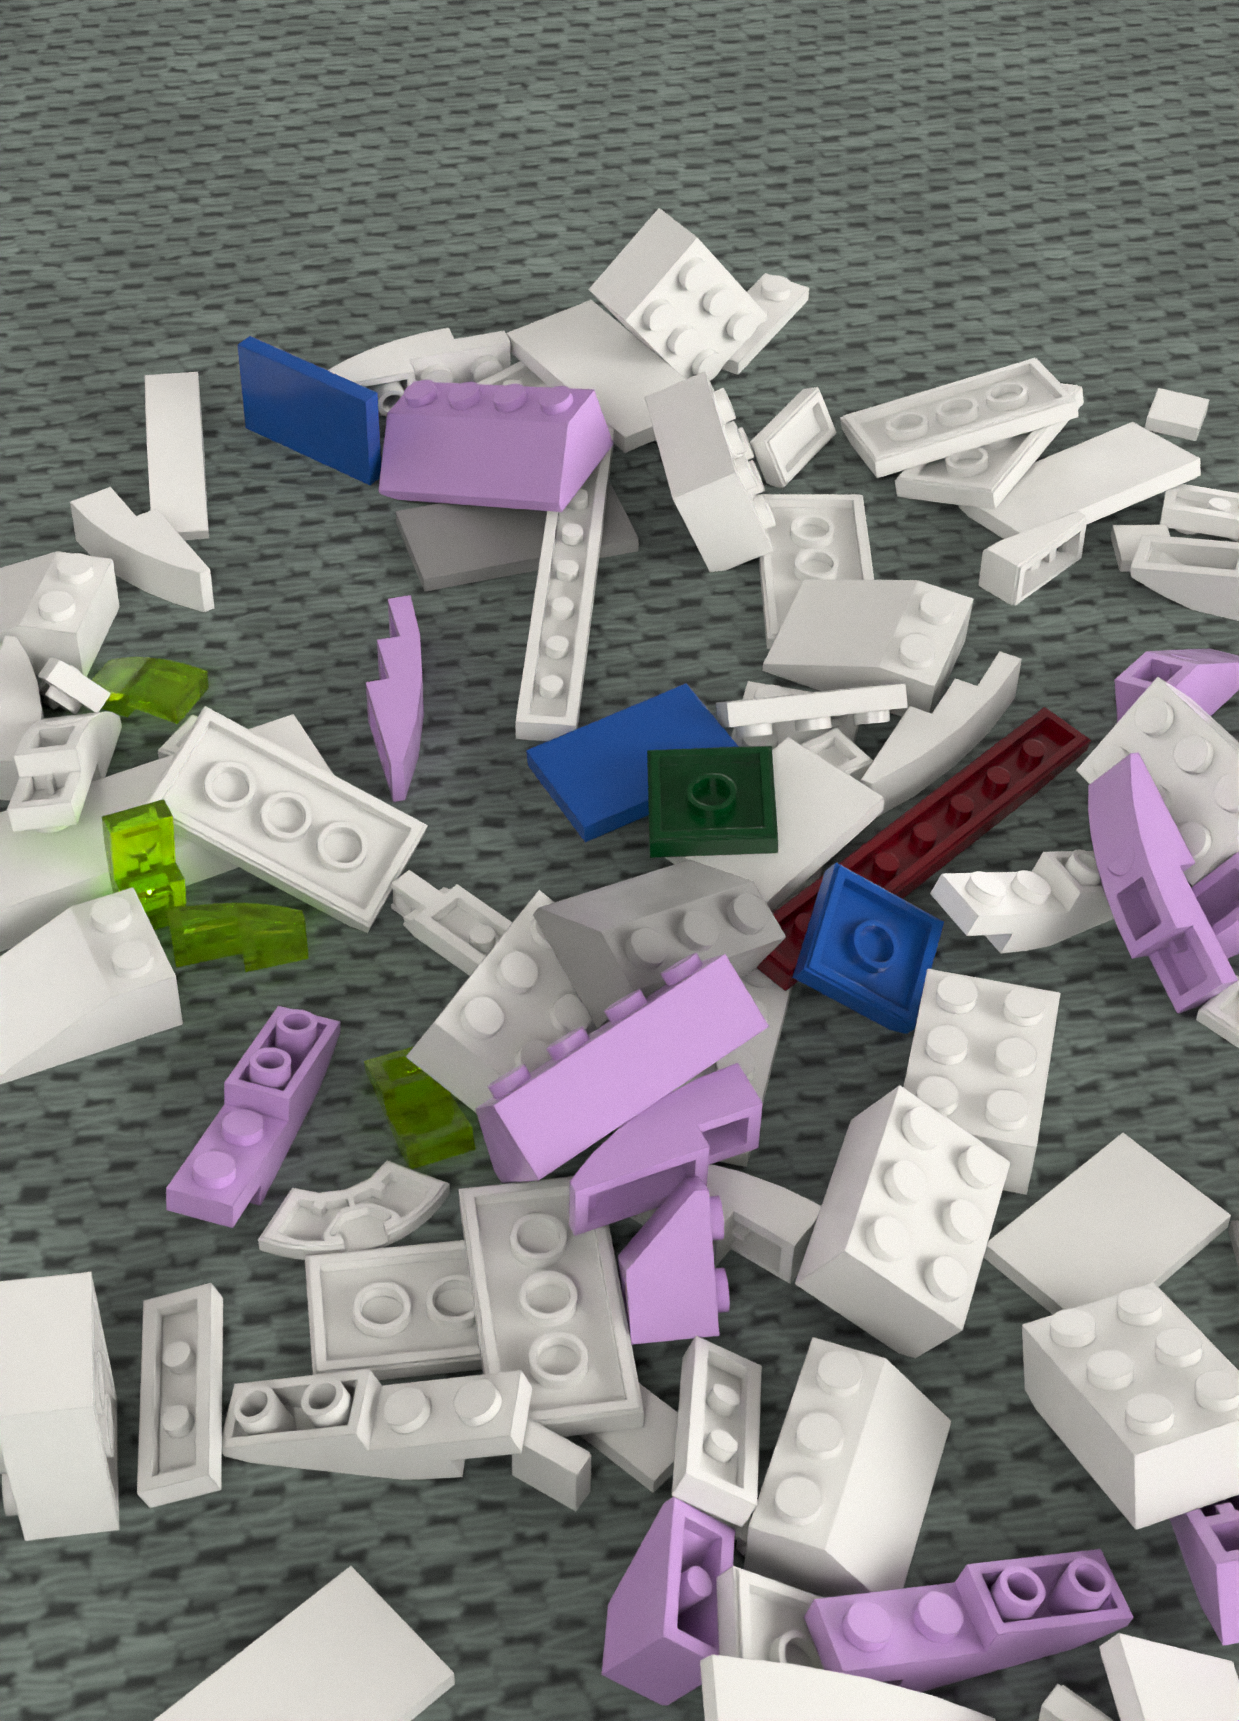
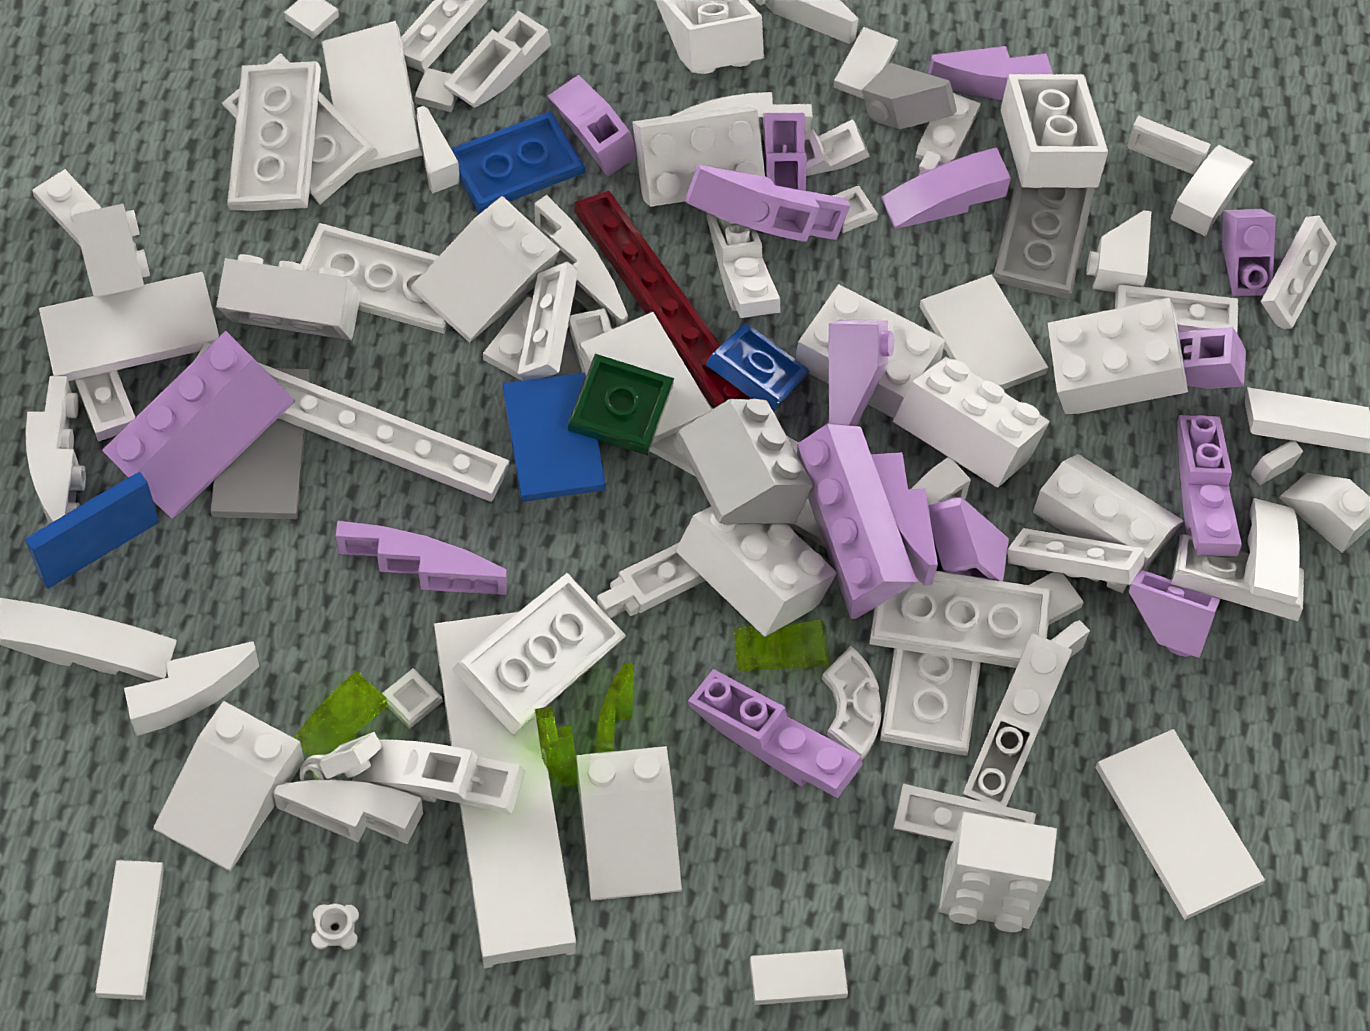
camera: 75 degrees left, 15 degrees up
(793, 437) = (242, 234): white tile -> none
(887, 1033) = (856, 364): none -> lavender slope
(1069, 639) = (516, 161): none -> blue tile

